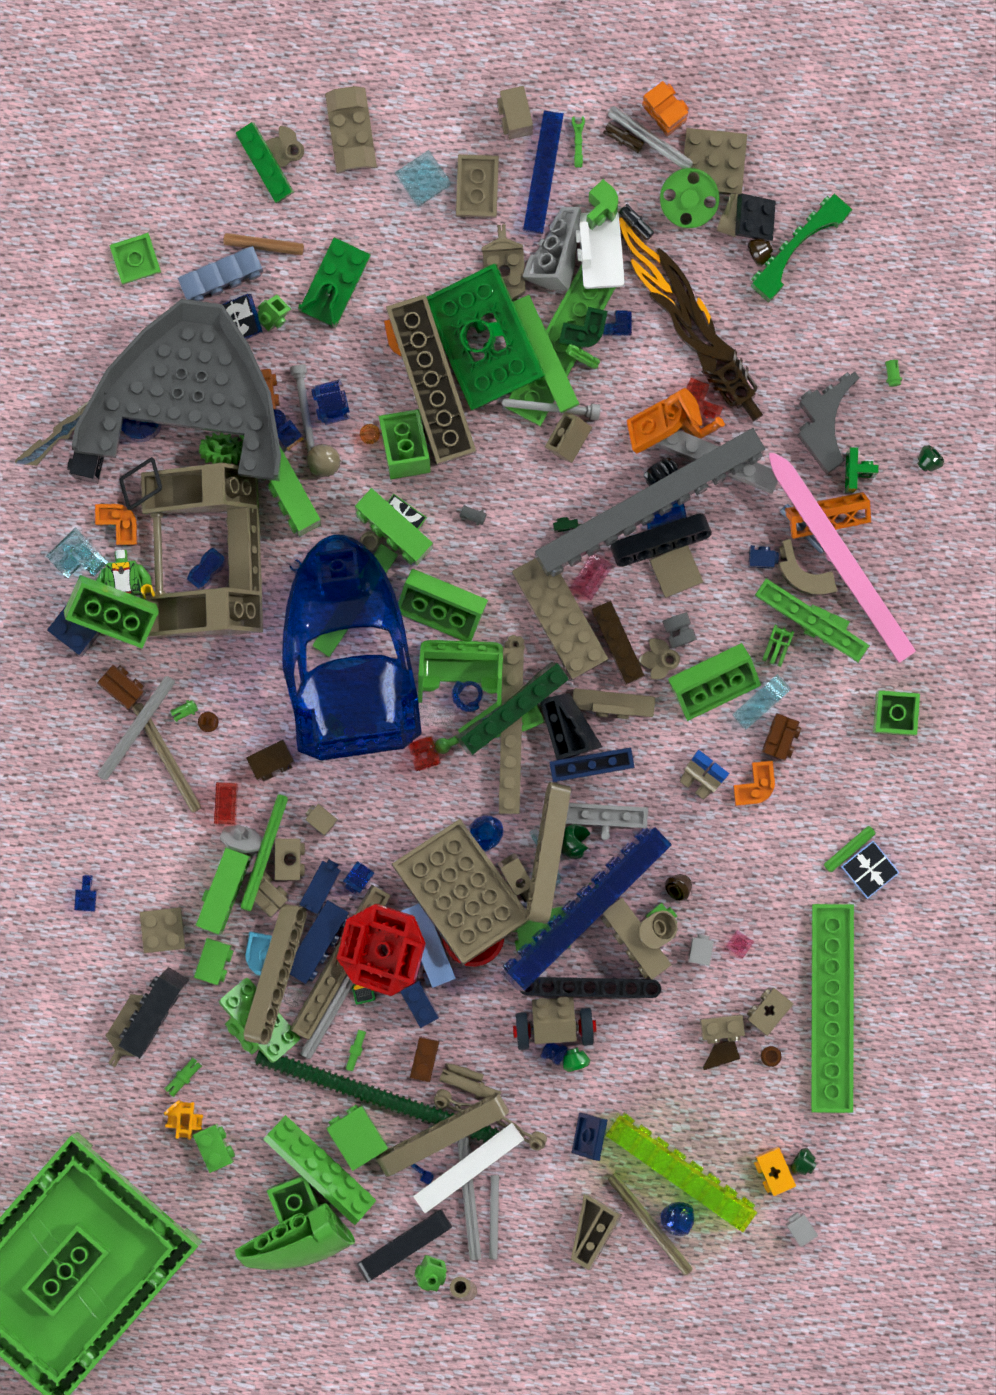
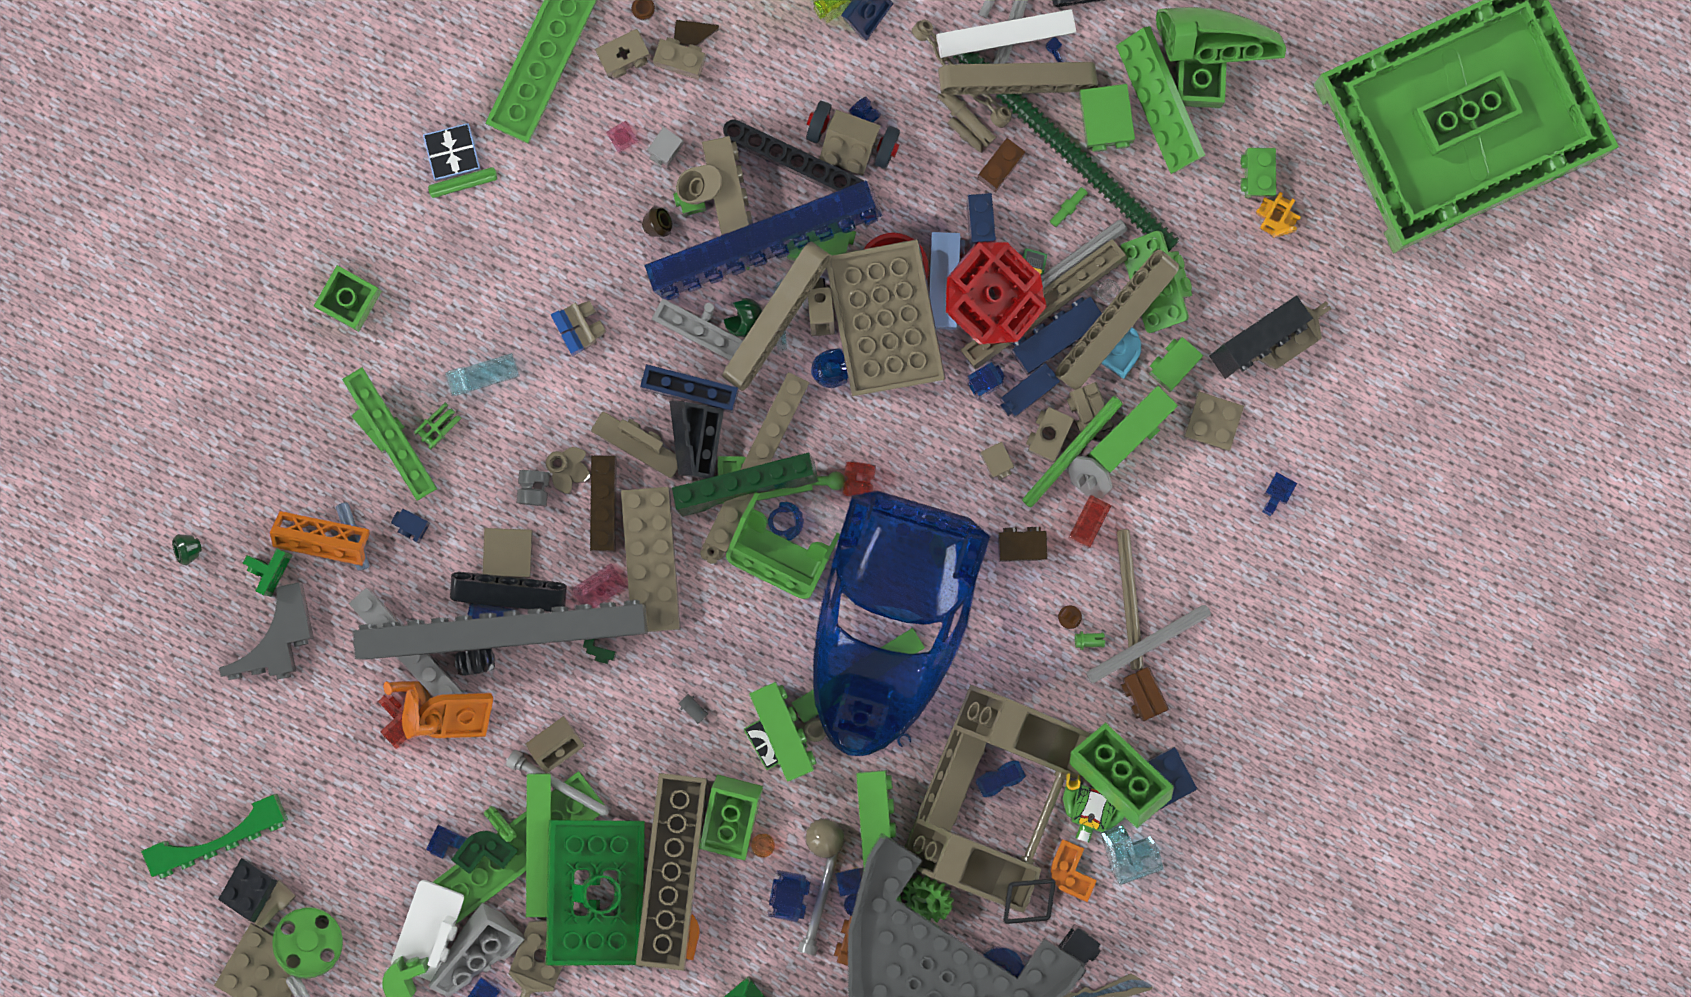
camera: 155 degrees left, 0 degrees up
(183, 1077) = (1259, 260): bright green pin -> none
(441, 605) = (769, 627): bright green slope -> none
(575, 1060) = (846, 93): green cone -> none
(636, 222) = (376, 943): black axle -> none
(706, 354) = (362, 828): dark brown piece -> none
(714, 681) = (521, 418): bright green slope -> none
(760, 251) = (259, 852): dark brown cone -> none
(760, 789) = (527, 284): orange plate -> none
(780, 737) = (479, 328): reddish brown brick -> none
(800, 580) = (380, 480): dark tan arch -> none
(841, 557) = (328, 486): bright pink piece -> none
(893, 373) = (181, 657): bright green pin -> none

